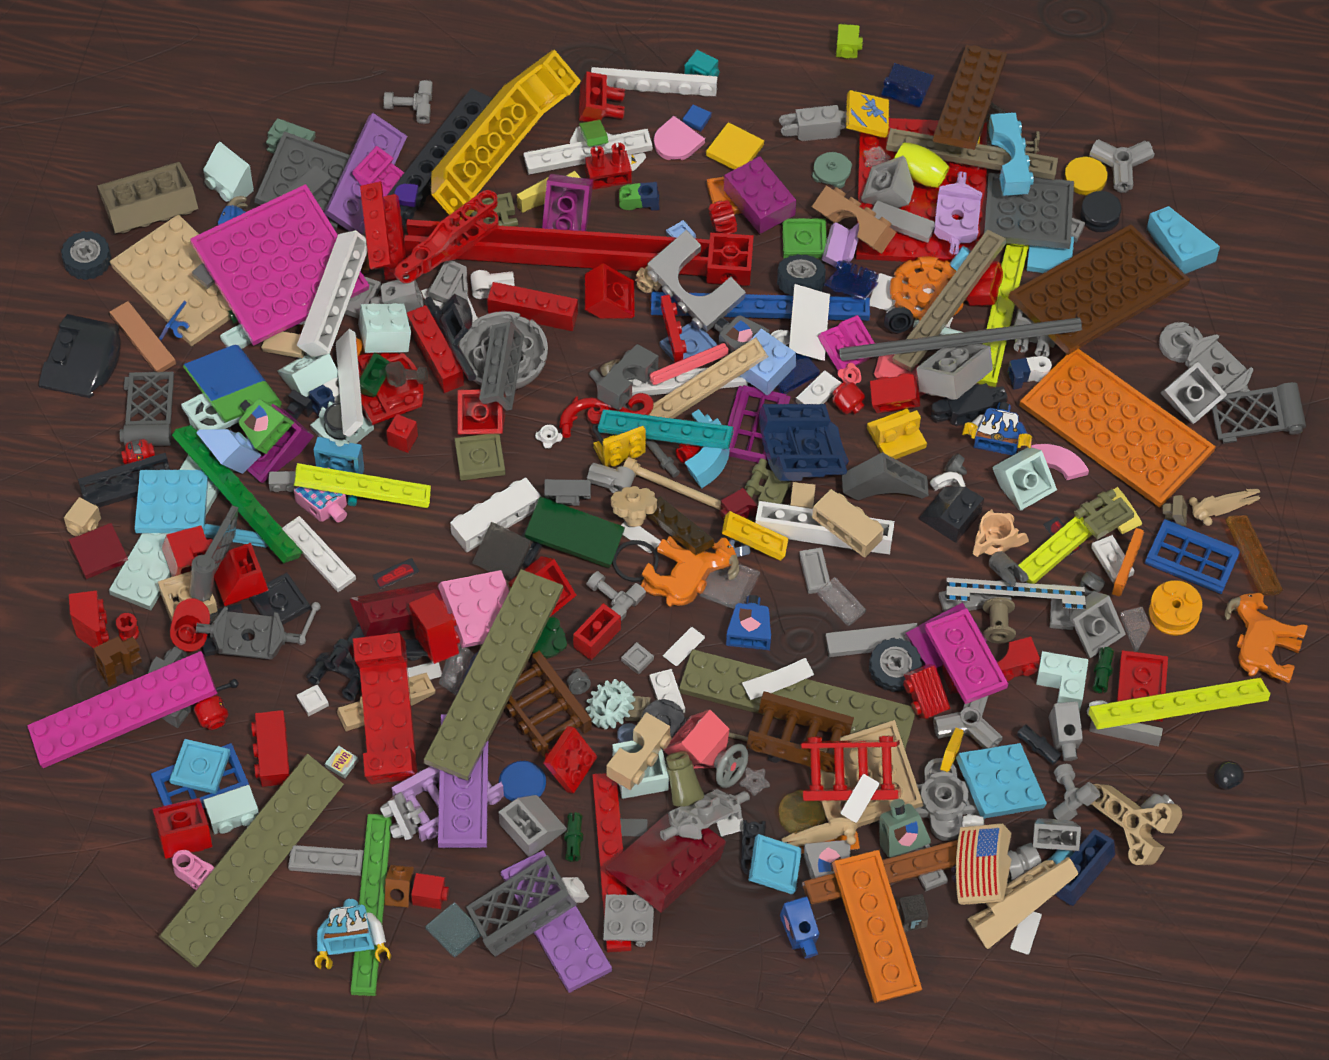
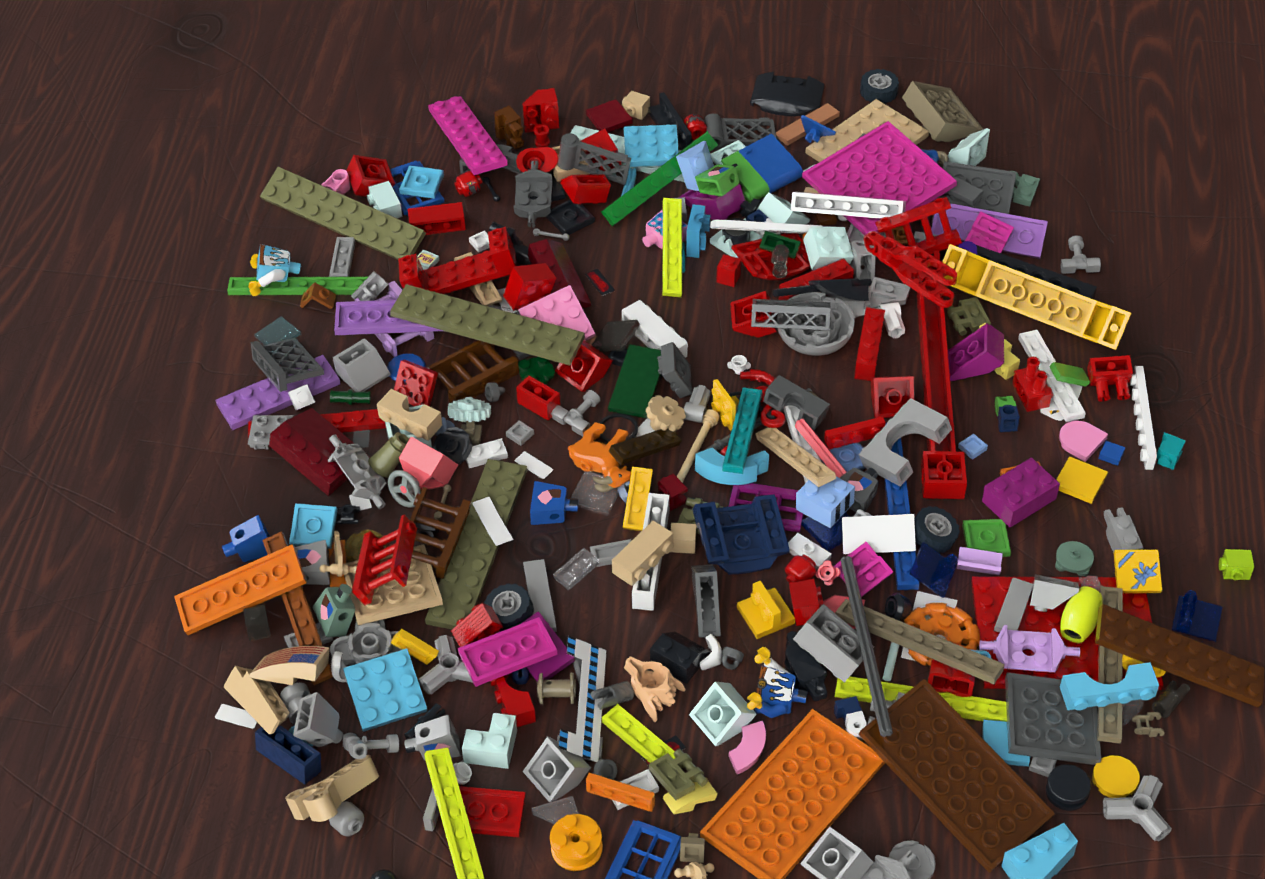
camera: 90 degrees right, 10 degrees down
(319, 554) = (614, 235): white tile -> none
(429, 891) = (307, 312): red brick -> none
(479, 456) = (712, 321): olive plate -> none
(722, 217) = (989, 467): red gear -> none
(754, 787) = (395, 518): clear plate -> none
(860, 798) = (356, 566): white sticker -> none
(871, 230) = (992, 575): medium nougat arch -> none
(1103, 669) = (506, 778): dark green pin -> none

